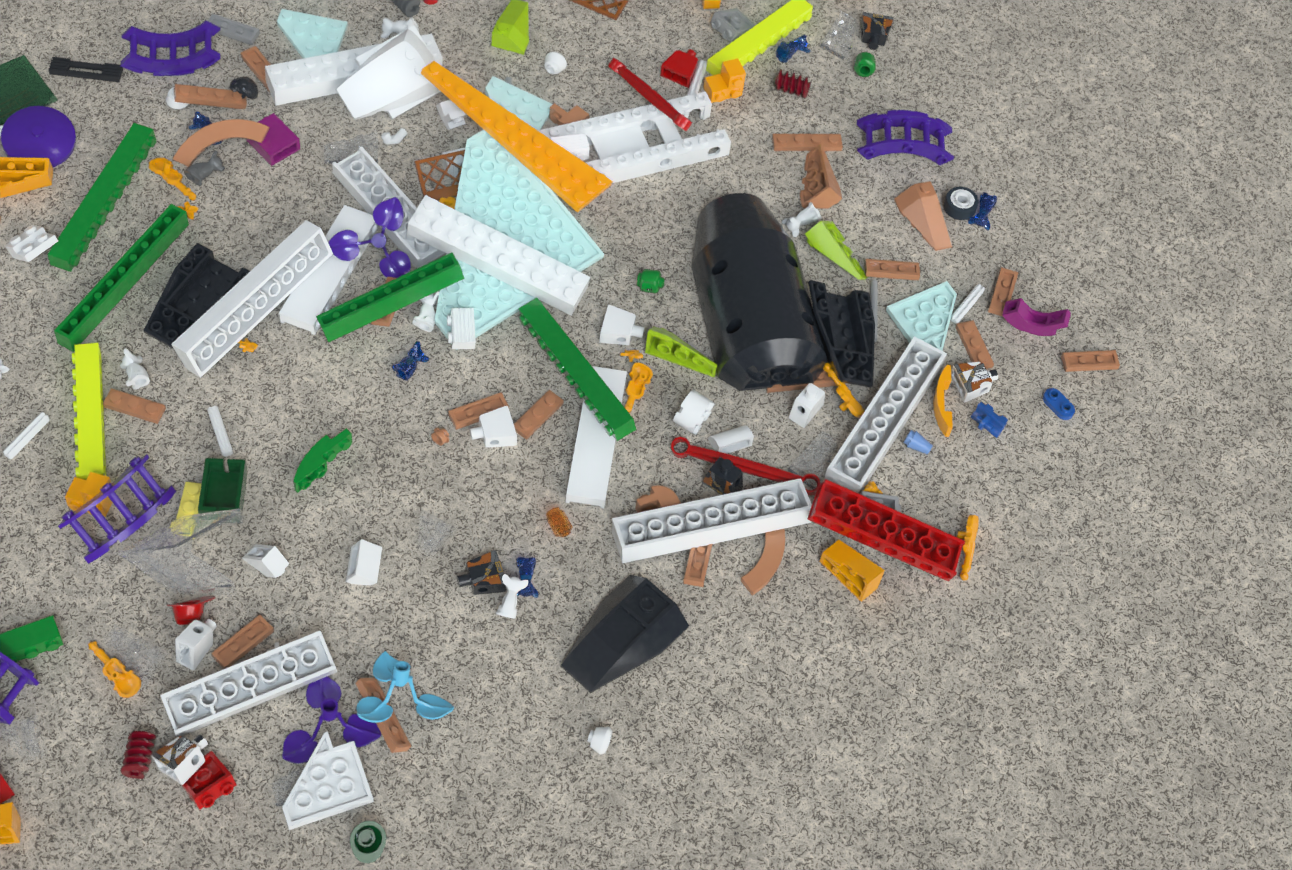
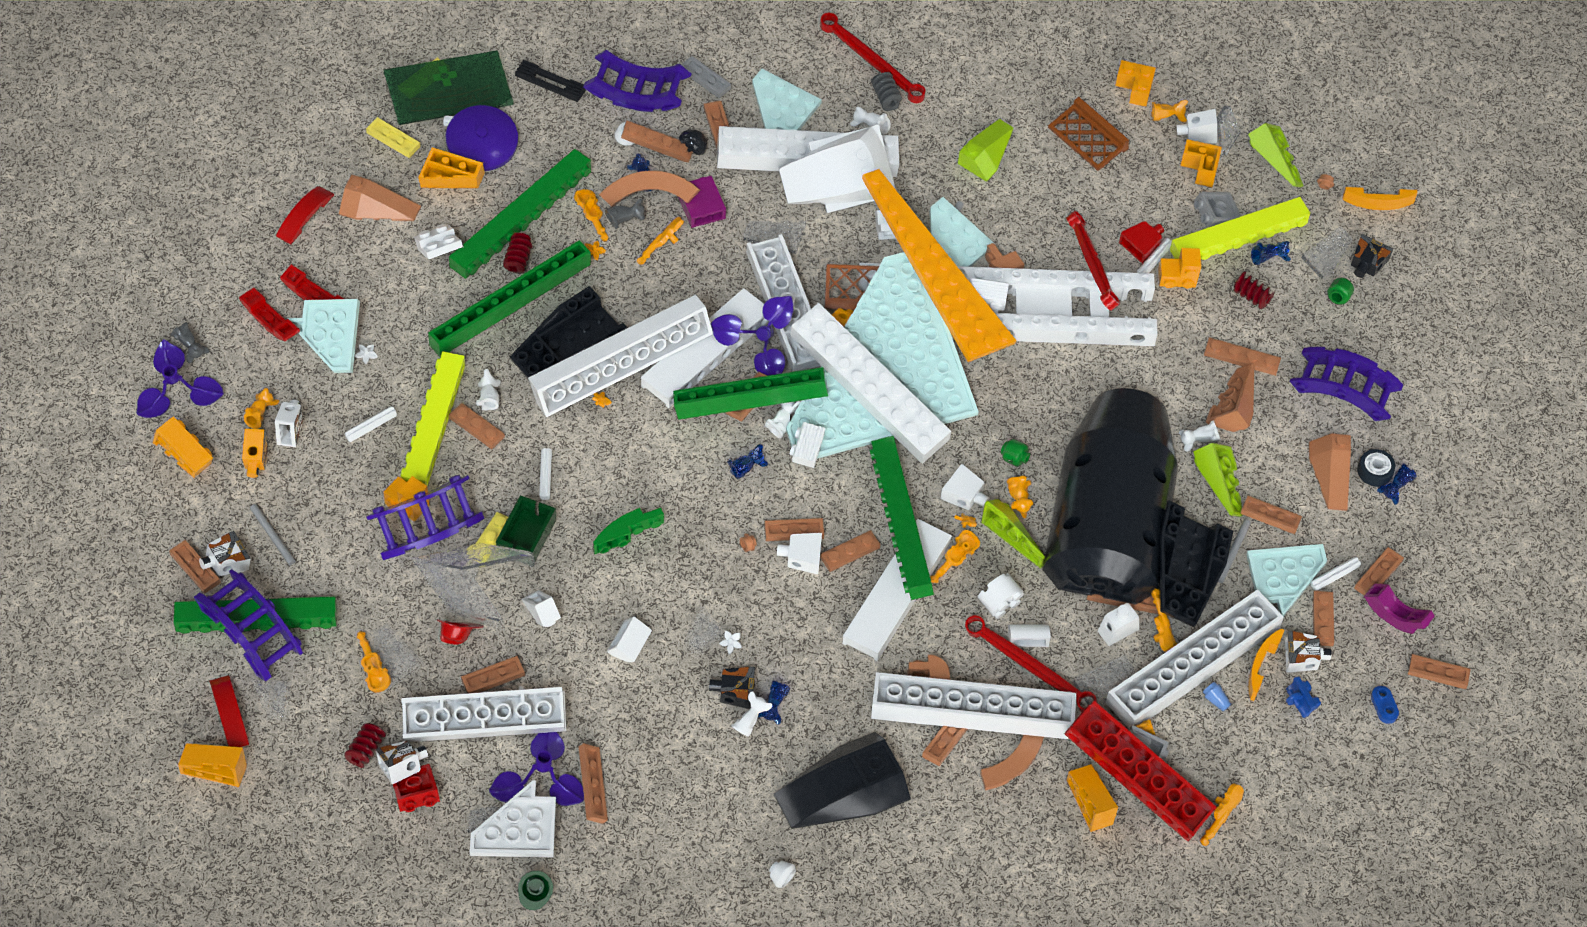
camera: 25 degrees right, 0 degrees up
(114, 233) = (518, 253): none -> dark red piece
(194, 643) = (449, 662): white torso -> none
(248, 182) = (661, 239): none -> light orange piece
(387, 669) = (617, 749): medium azure plant -> none
(389, 139) = (821, 234): white arm -> none
(462, 533) = (731, 641): none -> white plant
(555, 62) = (1013, 200): white cone -> none
(559, 522) = (826, 660): clear orange brick -> none
(667, 313) = (1019, 491): none -> light orange animal
(724, 477) = (1002, 667): black torso -> none

